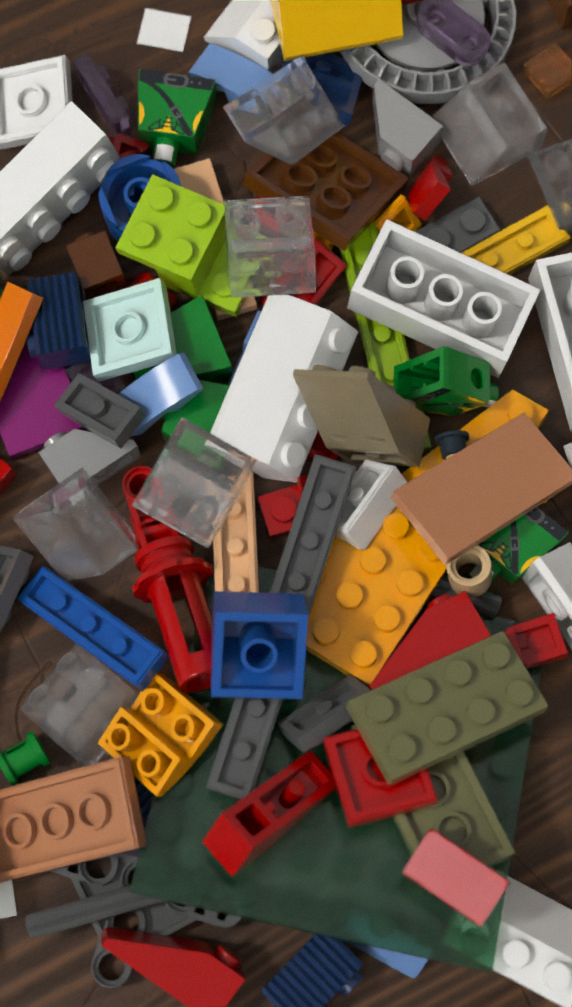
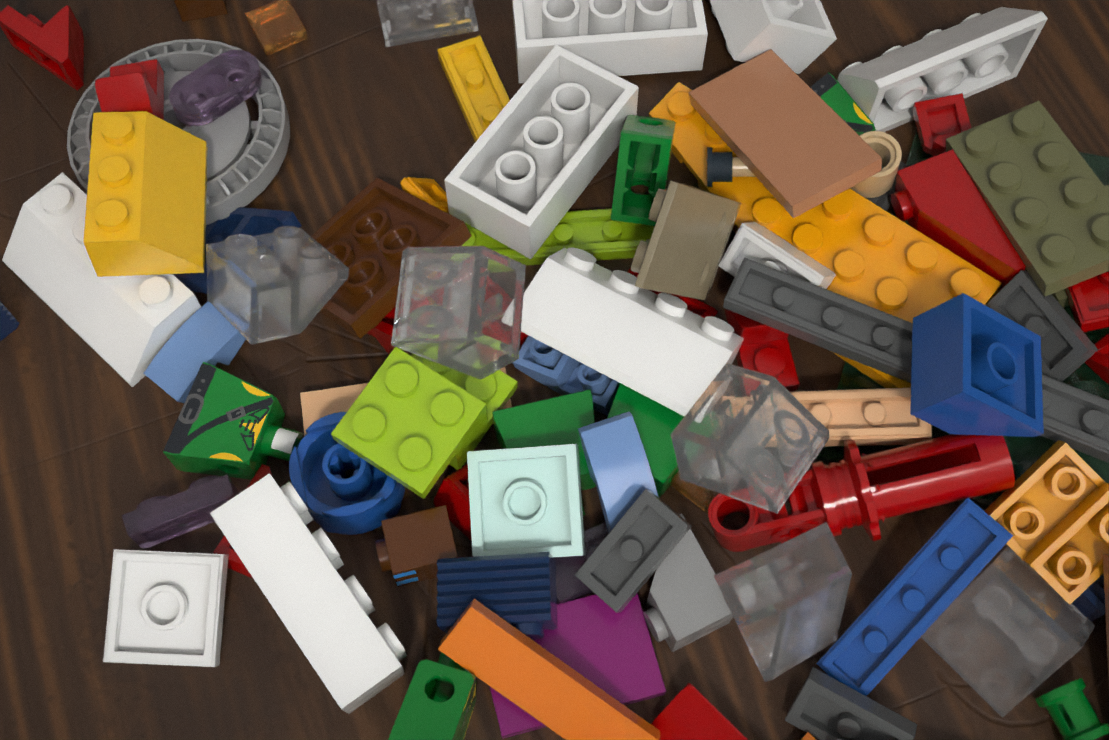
camera: 85 degrees left, 10 degrees down
(164, 30) = (103, 433): white sticker -> none
(402, 130) = (313, 176): light grey slope -> none
(430, 187) = (397, 152): red slope -> none
(462, 227) = (446, 135): dark grey plate -> none
(490, 124) = (334, 82): clear slope -> none

